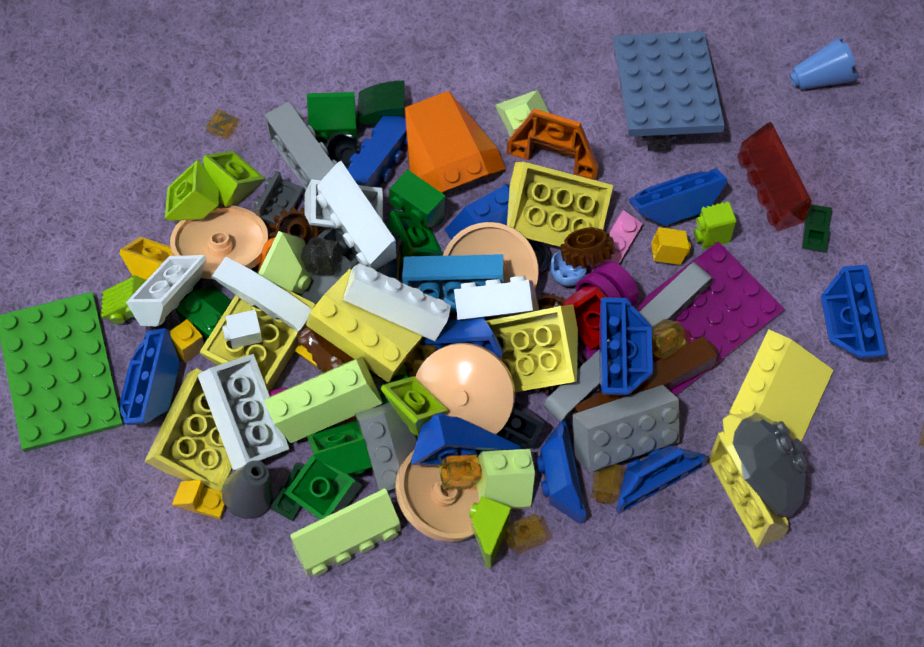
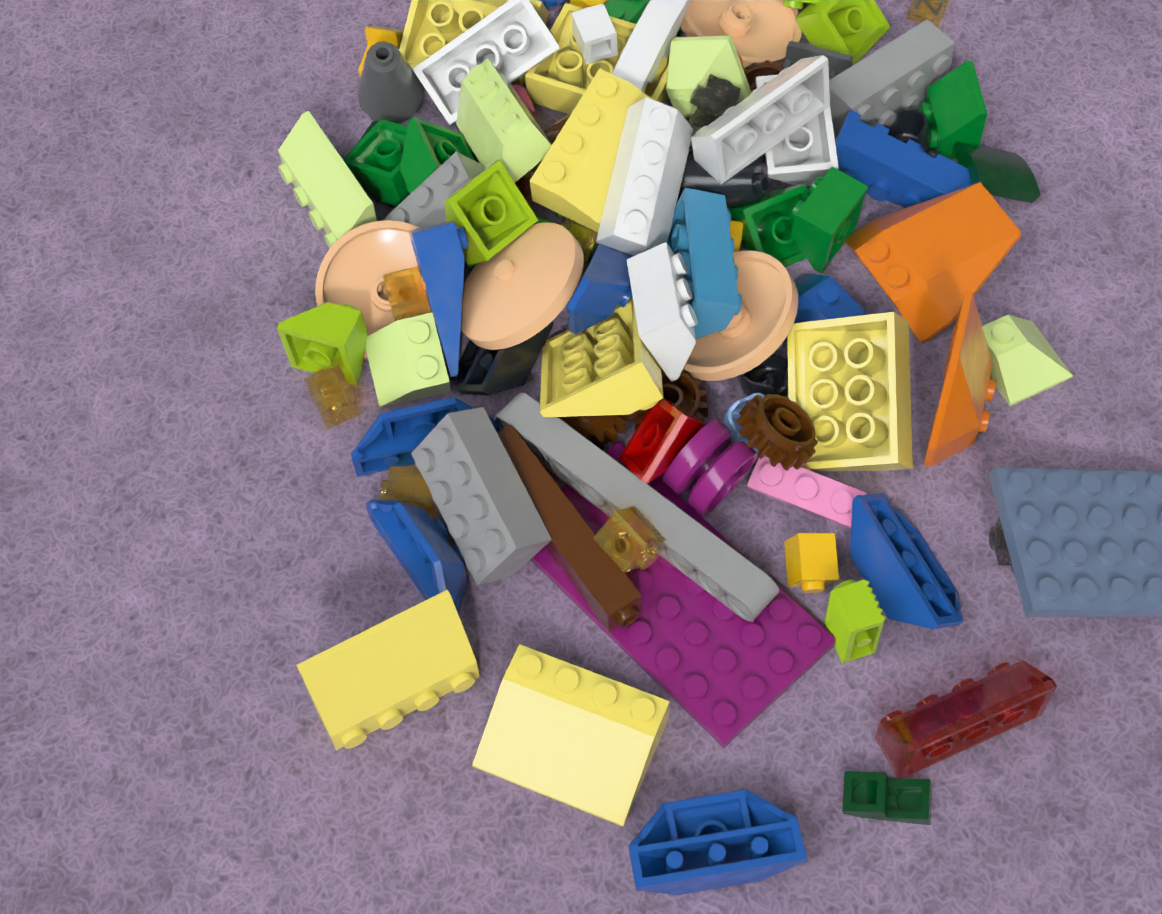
camera: 90 degrees right, 5 degrees down
(623, 347) = (591, 463): blue wedge -> none
(768, 459) = (417, 674): dark grey rock -> none

